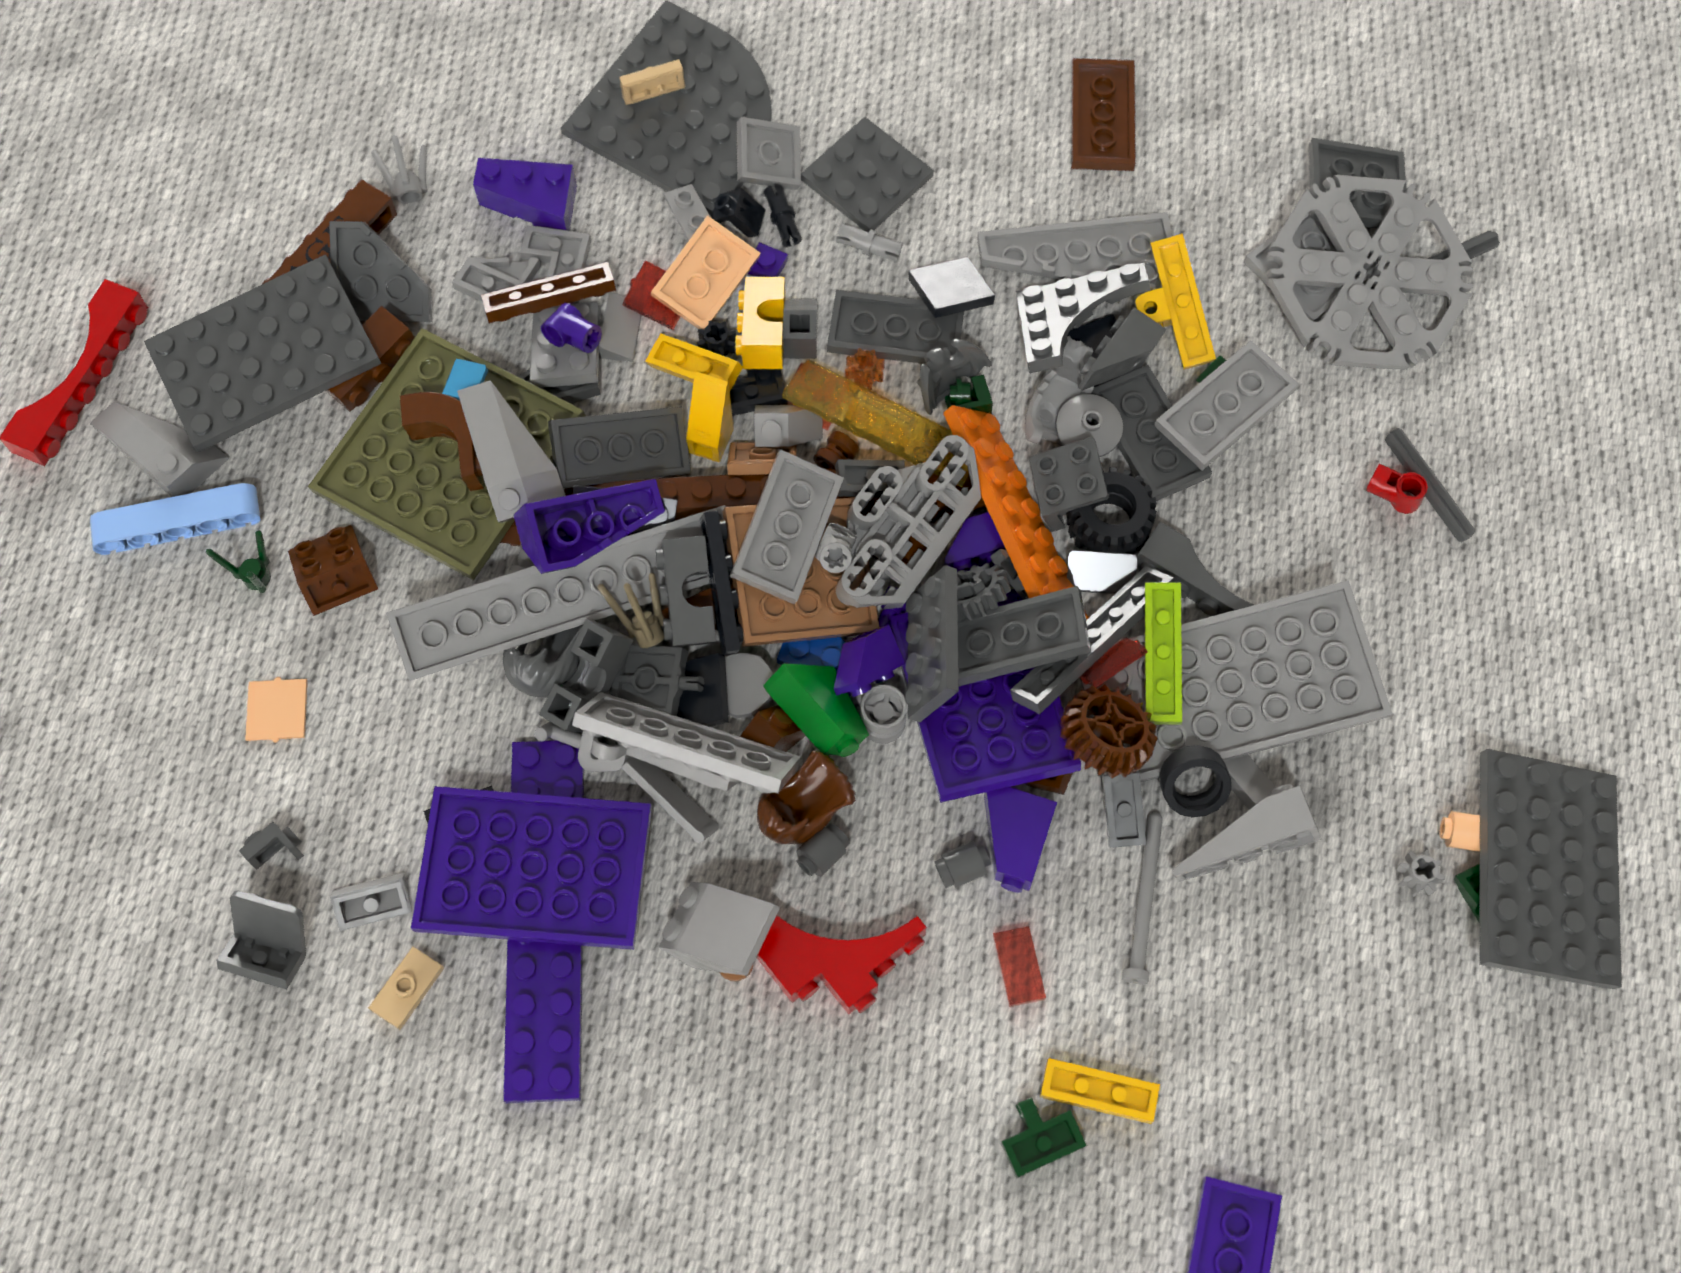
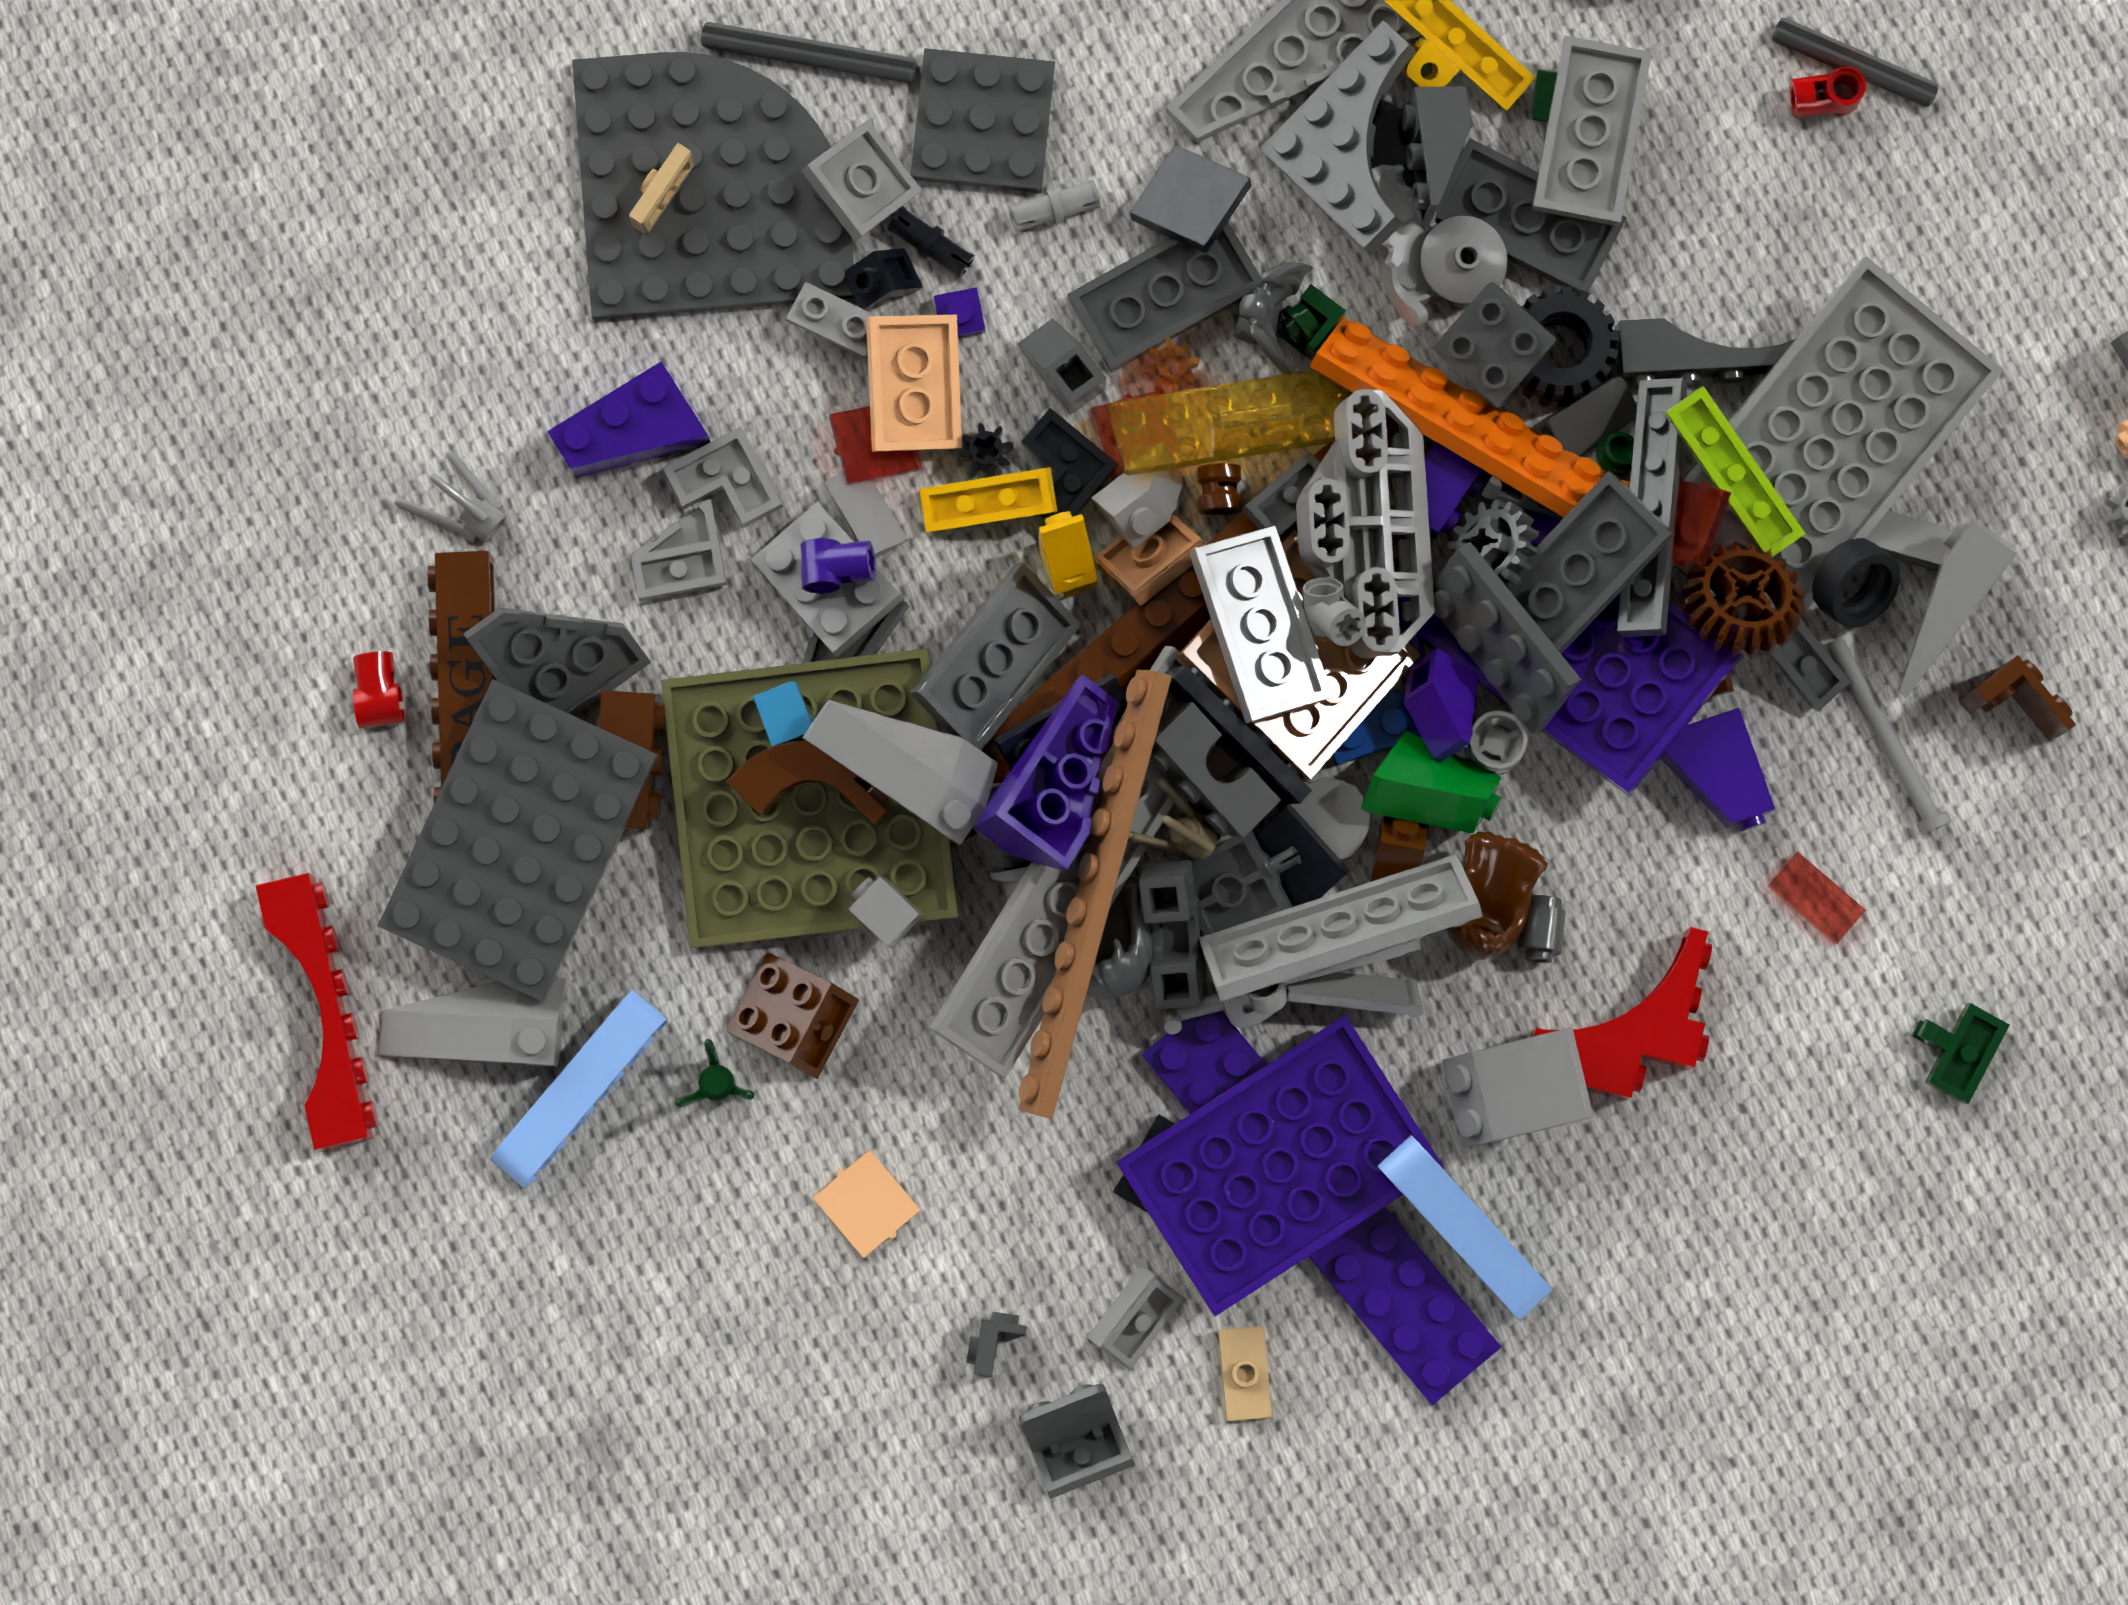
camera: 40 degrees left, 15 degrees up
(269, 233) = (377, 693): none -> red piece
(428, 537) = (884, 910): none -> light grey brick
(538, 615) = (1098, 879): none -> medium nougat plate
(548, 292) = (763, 534): reddish brown plate -> none
(613, 995) = (1465, 1227): none -> light blue beam
(761, 323) = (1046, 424): yellow arch -> none
(799, 79) = (808, 52): none -> dark grey axle
(962, 864) = (1688, 838): dark grey brick -> none
(1096, 598) = (1615, 453): none -> dark green plate
(1100, 1091) = (1982, 962): yellow plate -> none
(1239, 910) = (2023, 683): none -> reddish brown bracket

